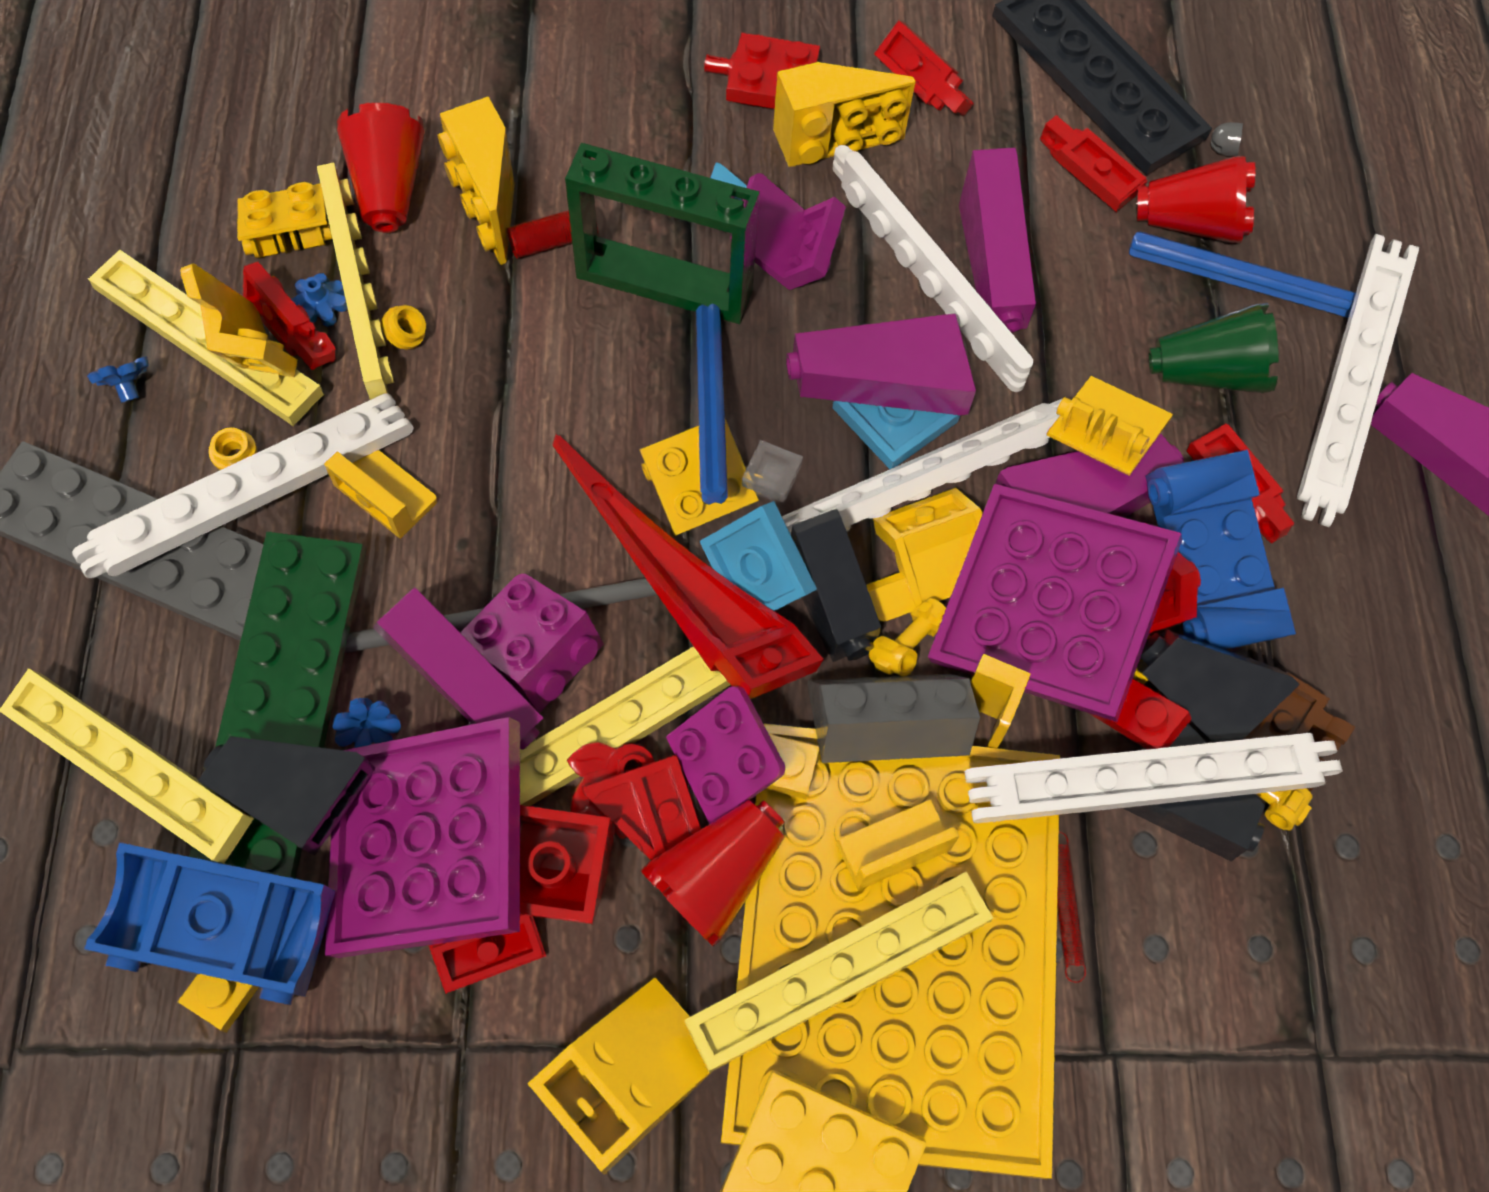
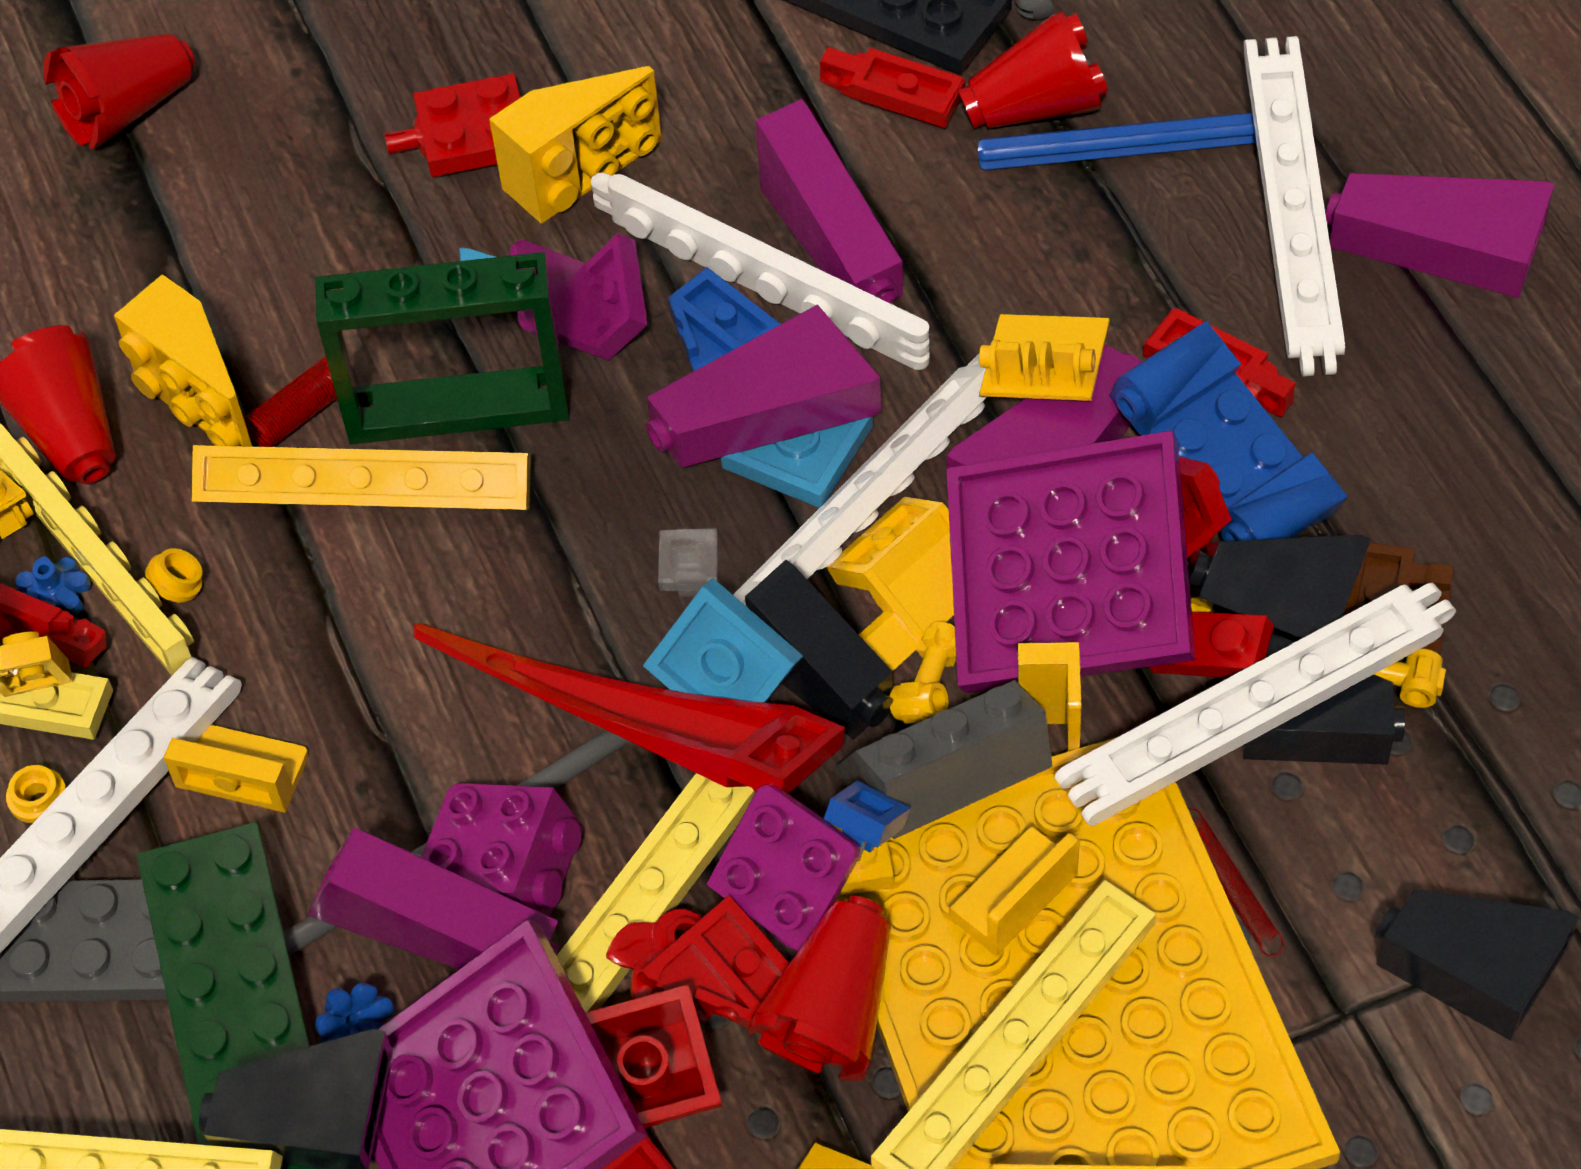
camera: 15 degrees left, 10 degrees down
(570, 307) = (361, 477): none -> yellow plate
(676, 477) = (603, 600): yellow hinge -> none
(711, 406) = (585, 512): blue axle -> none
(803, 743) = (866, 815): none -> blue tile
(879, 291) = (715, 318): none -> blue wing
(934, 77) = (628, 45): red hinge -> none
(1221, 352) = (1132, 234): dark green cone -> none
(1234, 1059) = (1475, 953): none -> black slope

